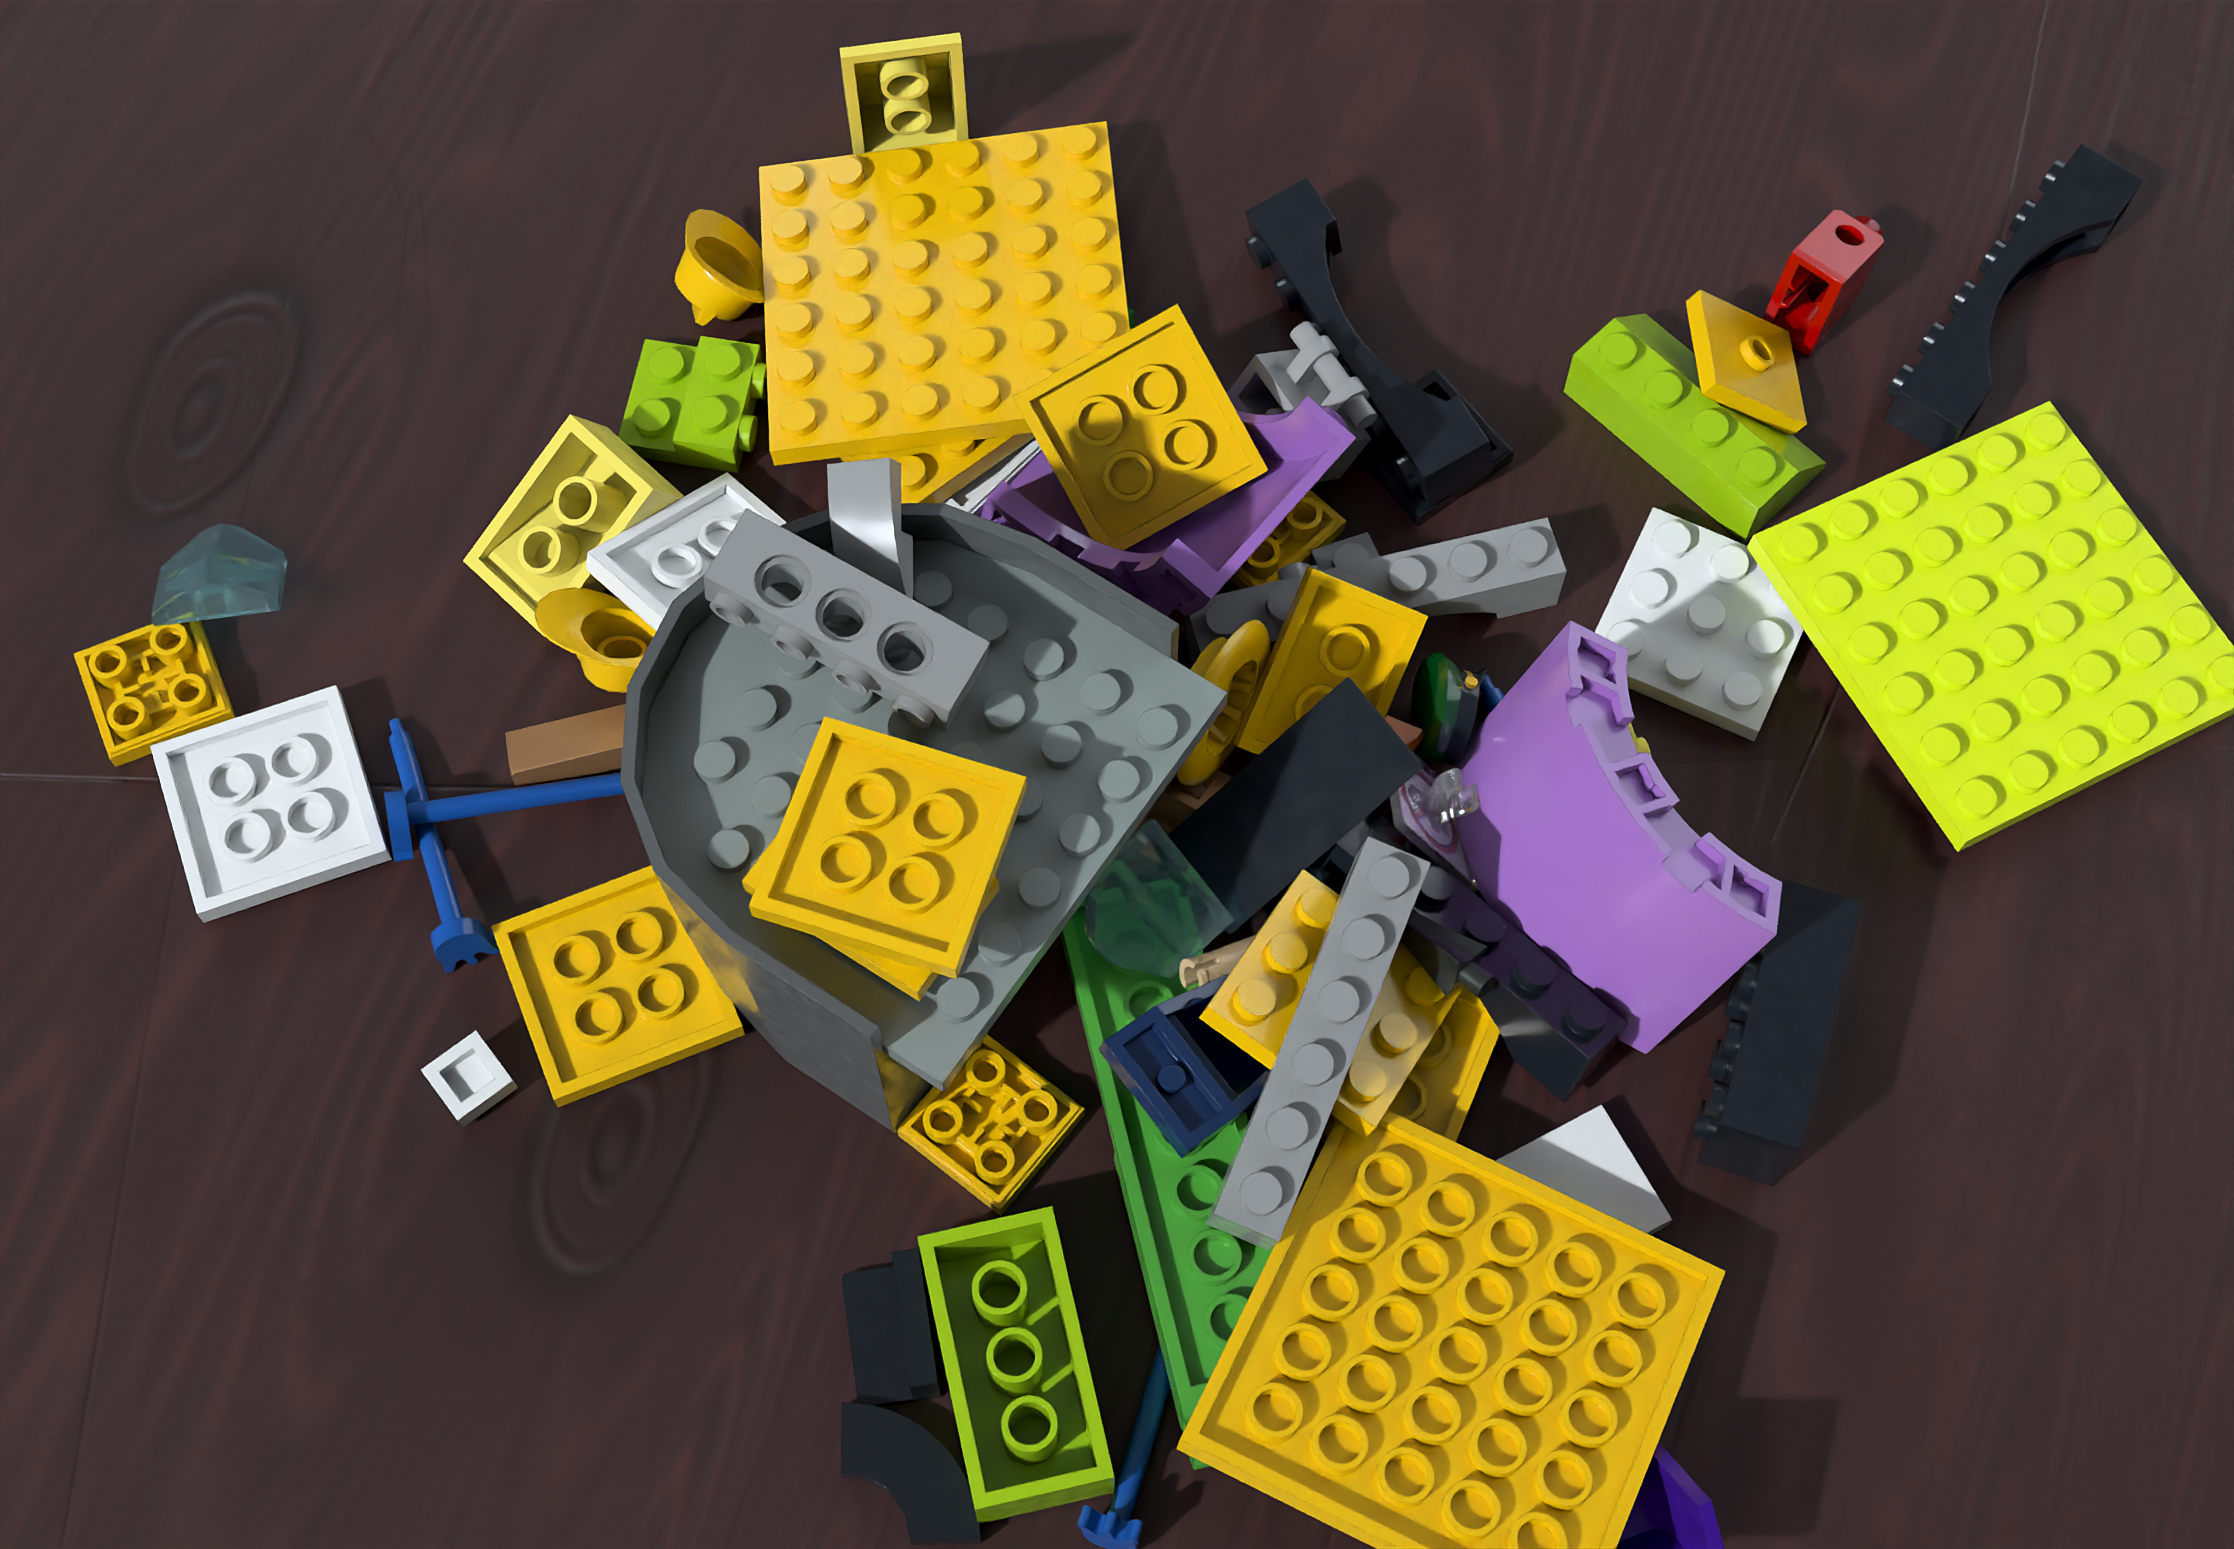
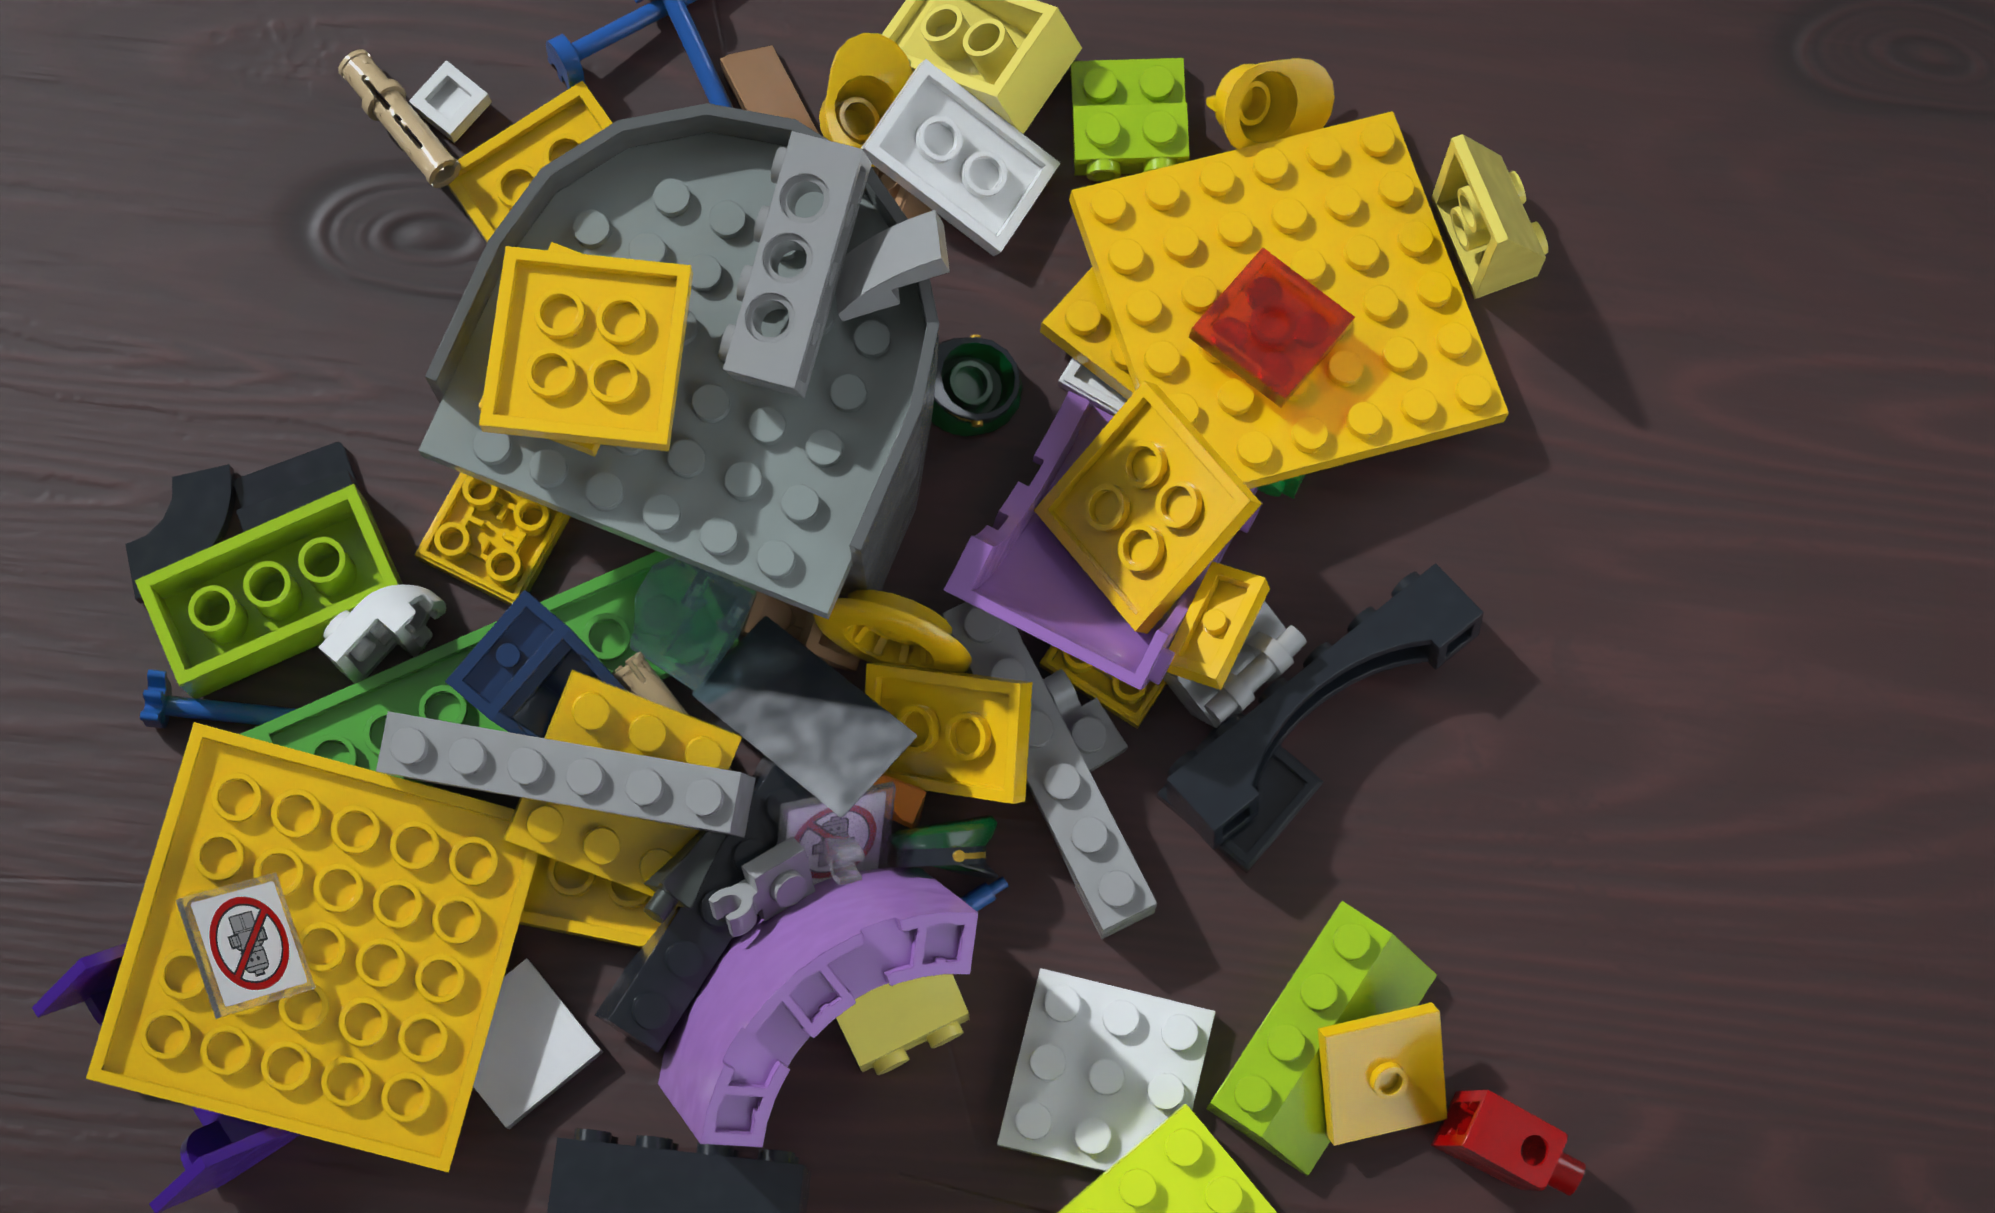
camera: 80 degrees right, 10 degrees up
(411, 1170) = (365, 79): none -> tan pin
(978, 284) = (1271, 327): none -> clear red plate
(1086, 1231) = (386, 617): none -> white slope
(1274, 383) = (1217, 624): none -> yellow plate
(1461, 1414) = (245, 944): none -> piece
(1469, 863) = (770, 886): none -> light grey plate

